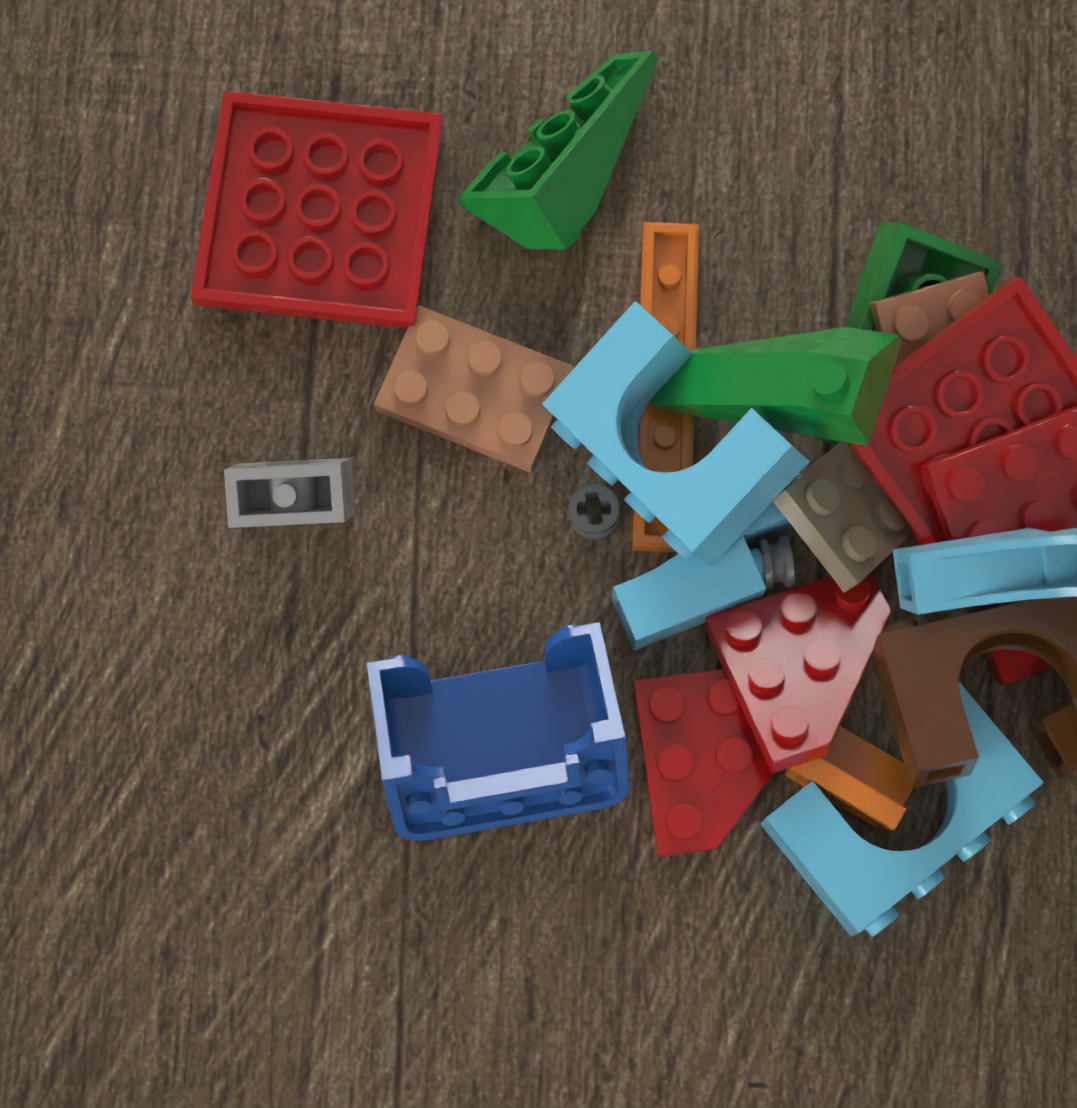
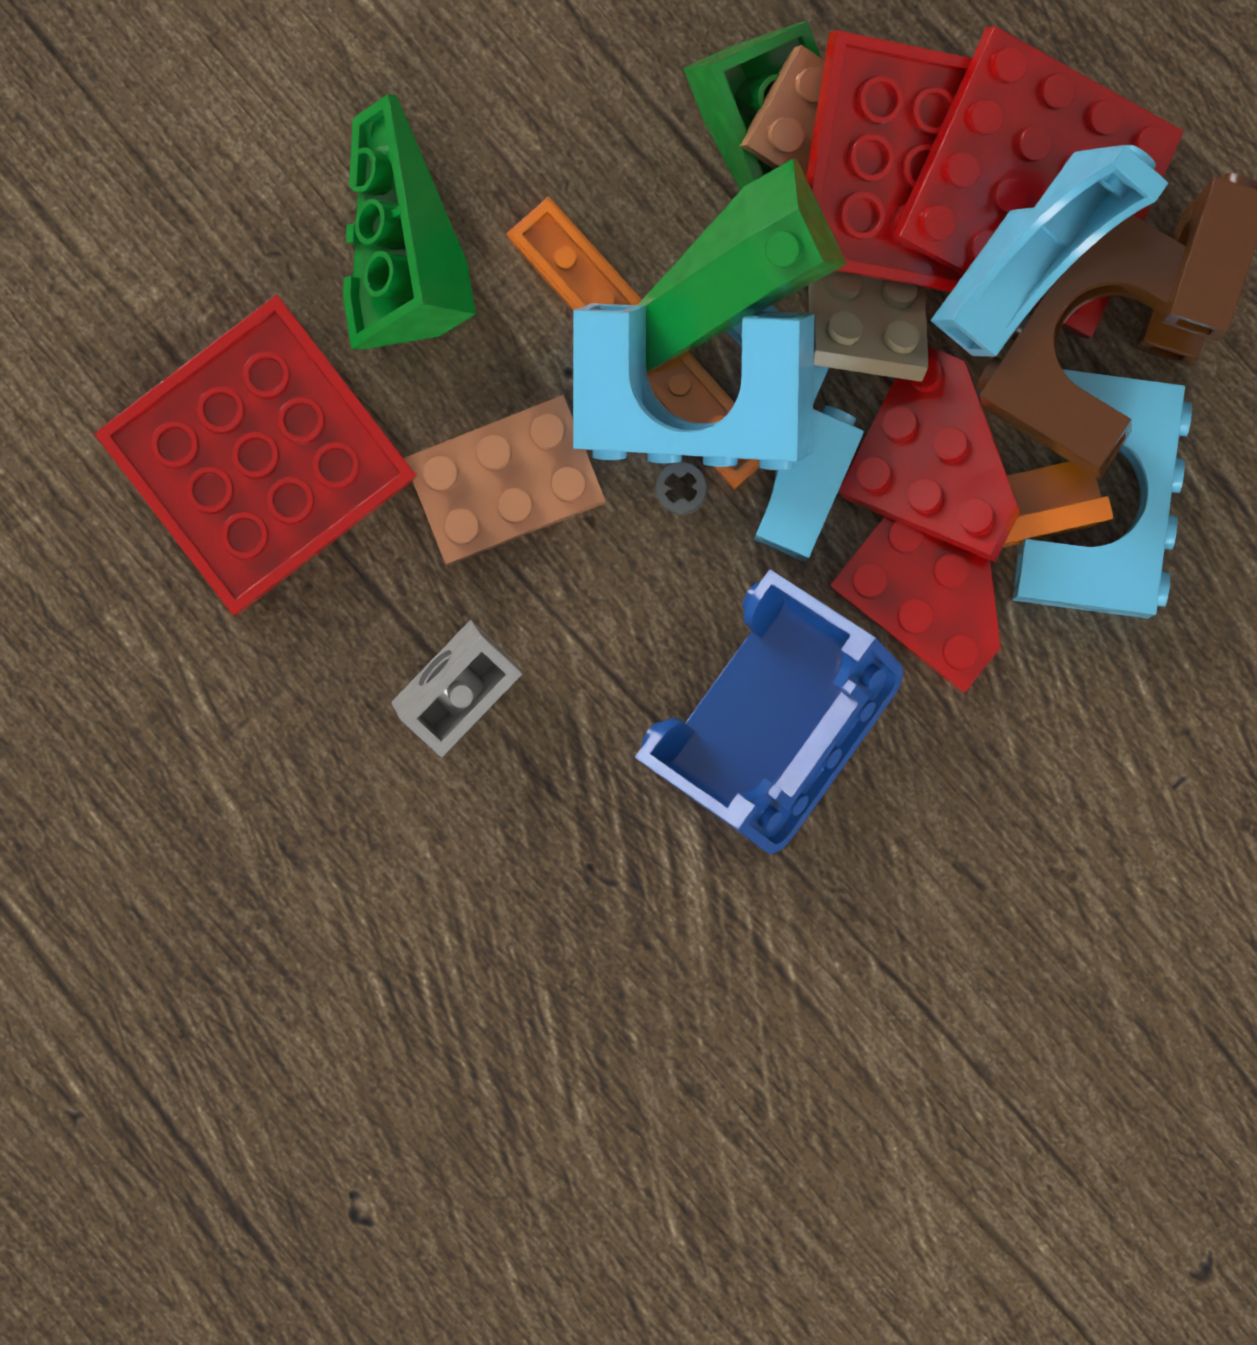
camera: 45 degrees left, 10 degrees up
(777, 562) = (849, 401): dark grey bush -> none

